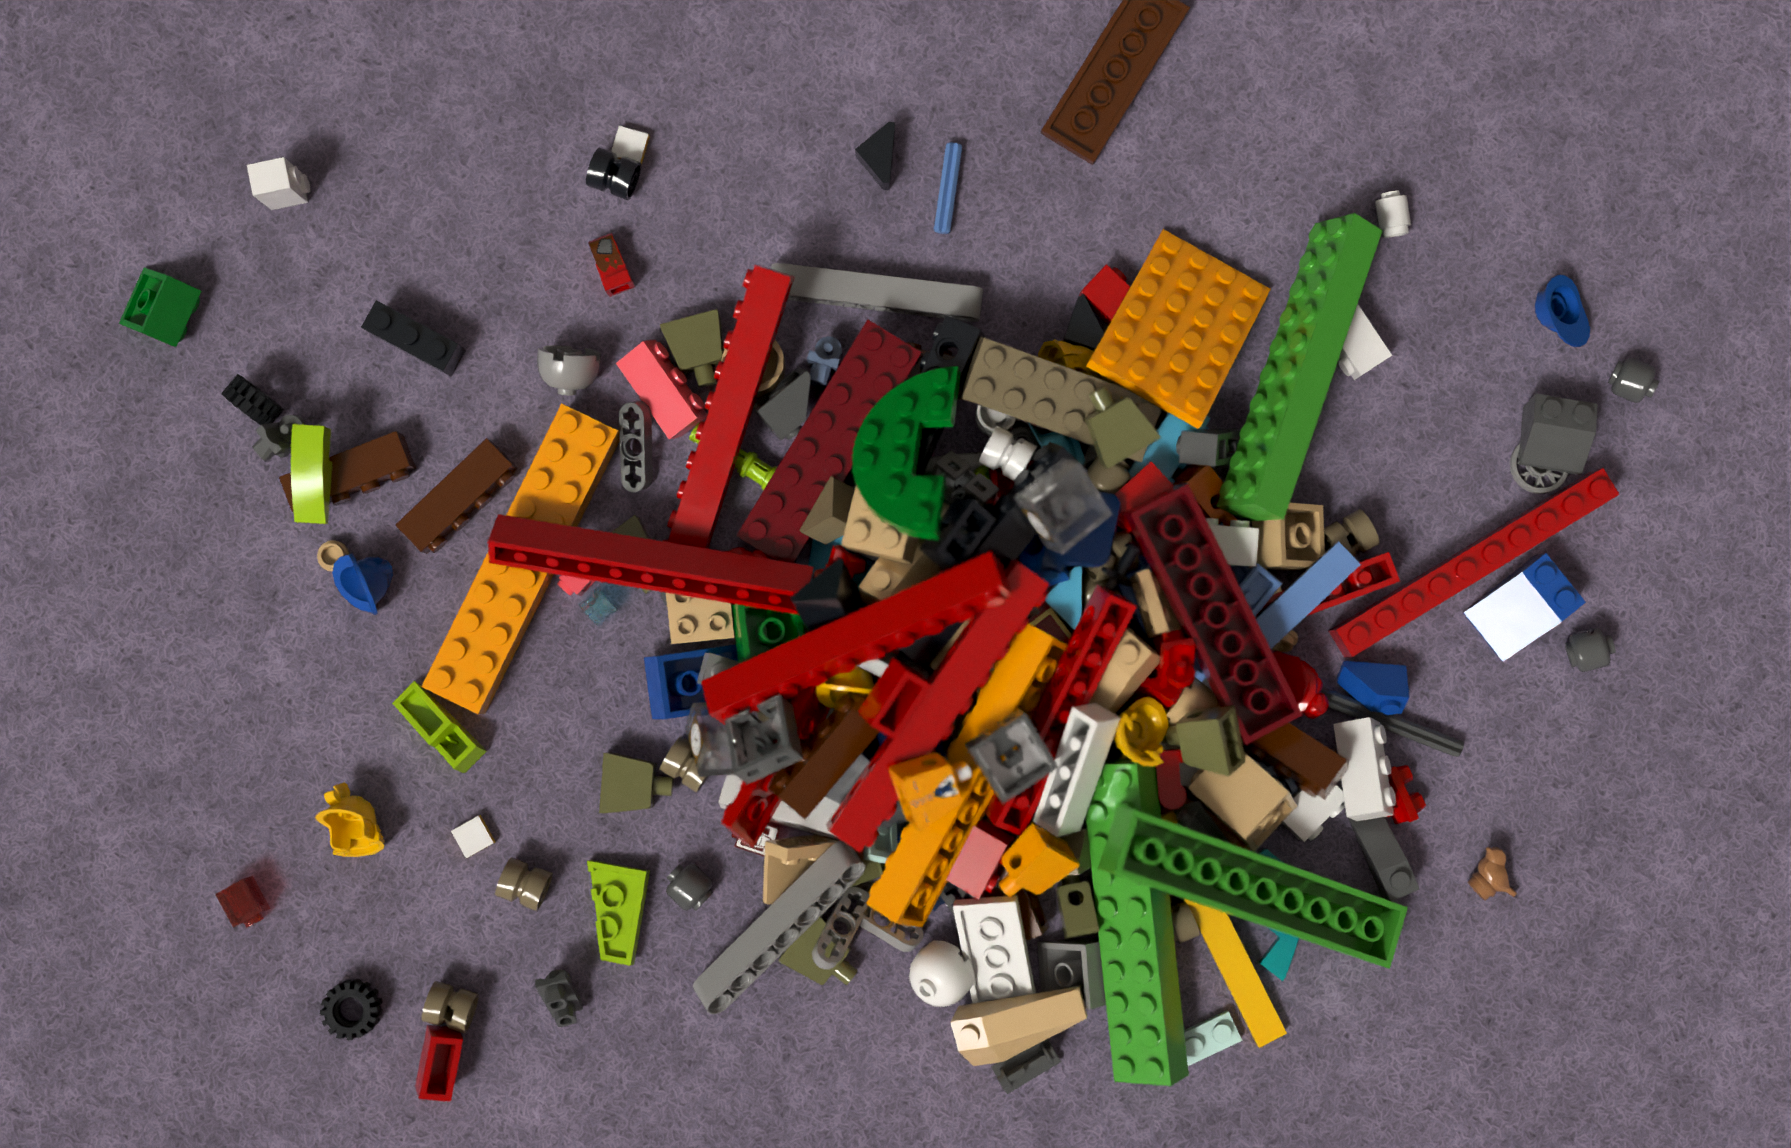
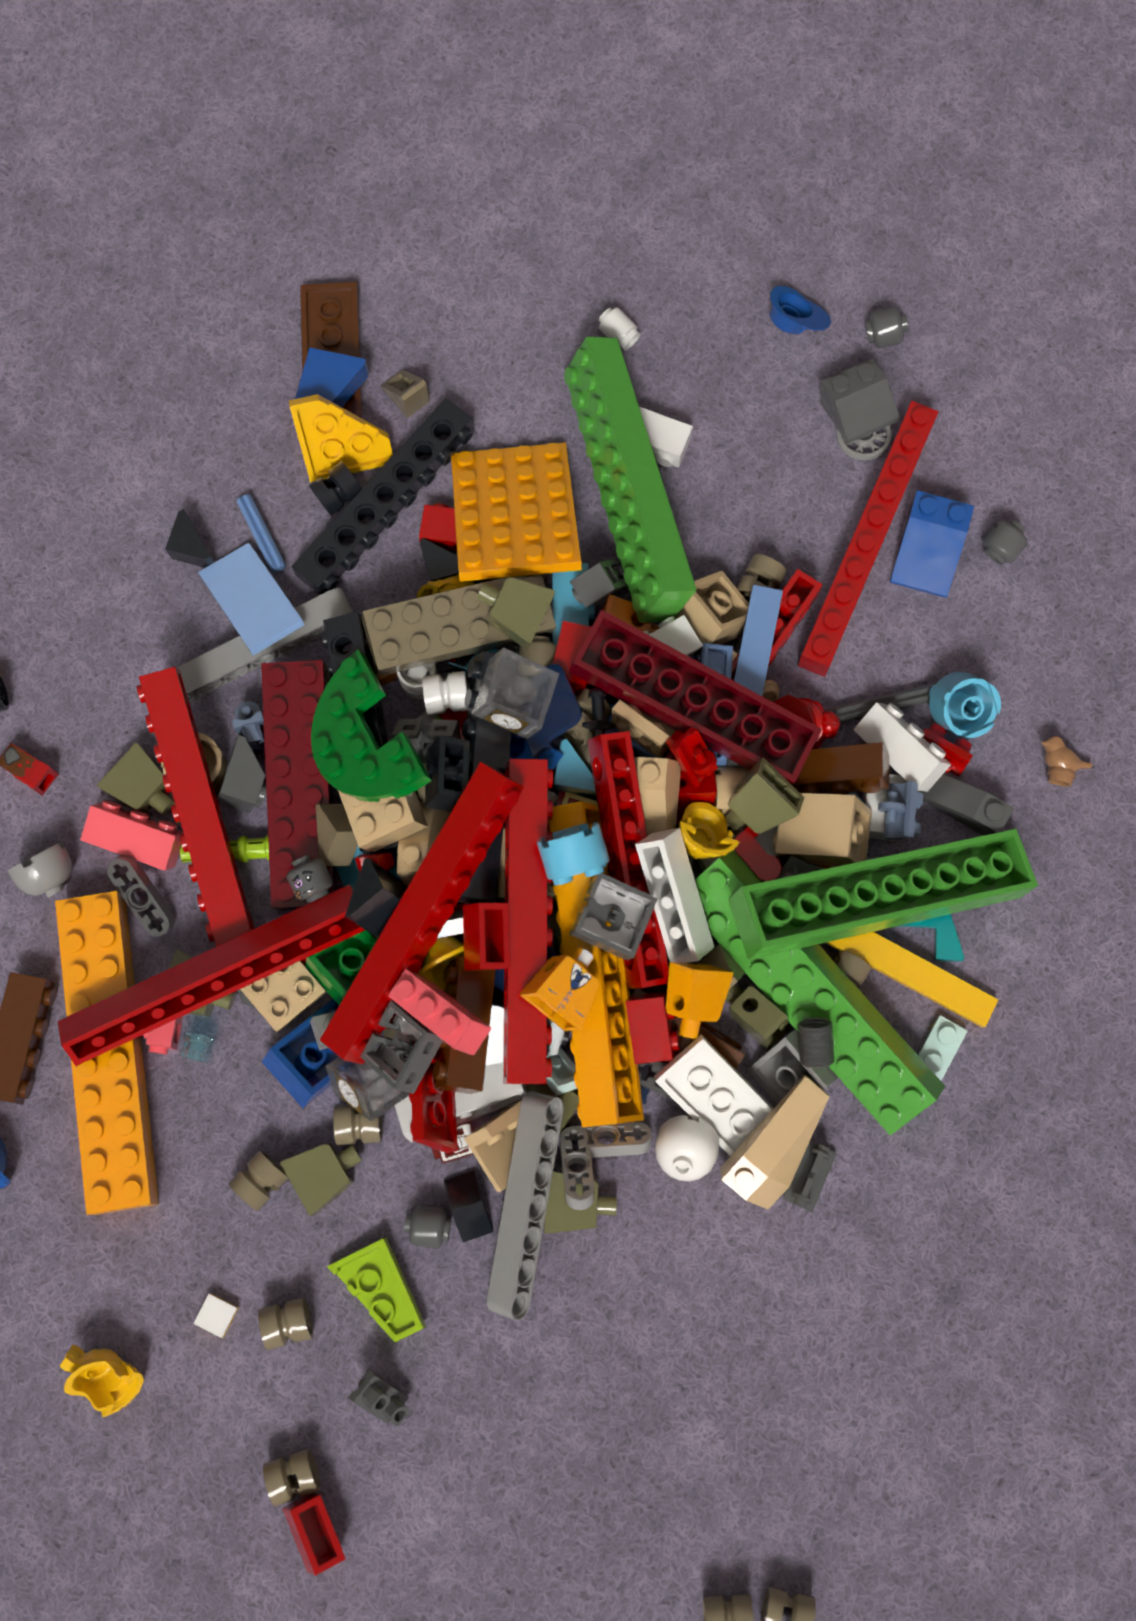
camera: 30 degrees left, 10 degrees down
(243, 902) = (49, 1516): clear red brick -> none
(333, 1015) = (186, 1543): black tyre -> none
(439, 728) = (126, 1242): lime slope -> none
(576, 754) = (258, 1180): none -> dark tan wheel
(732, 891) = (468, 1206): none -> black slope
(783, 538) = (309, 879): none -> dark grey head
(813, 734) = (439, 1012): none -> coral brick
(899, 246) = (251, 599): none -> light blue tile
(1015, 682) = (573, 852): none -> medium azure brick
(1051, 194) = (335, 488): none -> black wheel
(1071, 151) = (336, 435): none -> yellow plate
(1094, 94) = (332, 376): none -> blue slope
(1106, 970) = (816, 1042): none -> dark grey piece
(1163, 142) = (406, 392): none -> dark tan slope
(1179, 194) = (444, 419): none -> black brick
(1321, 825) = (901, 811): none -> sand blue hips
(1376, 685) = (863, 678): blue slope -> none
(1444, 770) = (964, 704): none -> medium azure brick

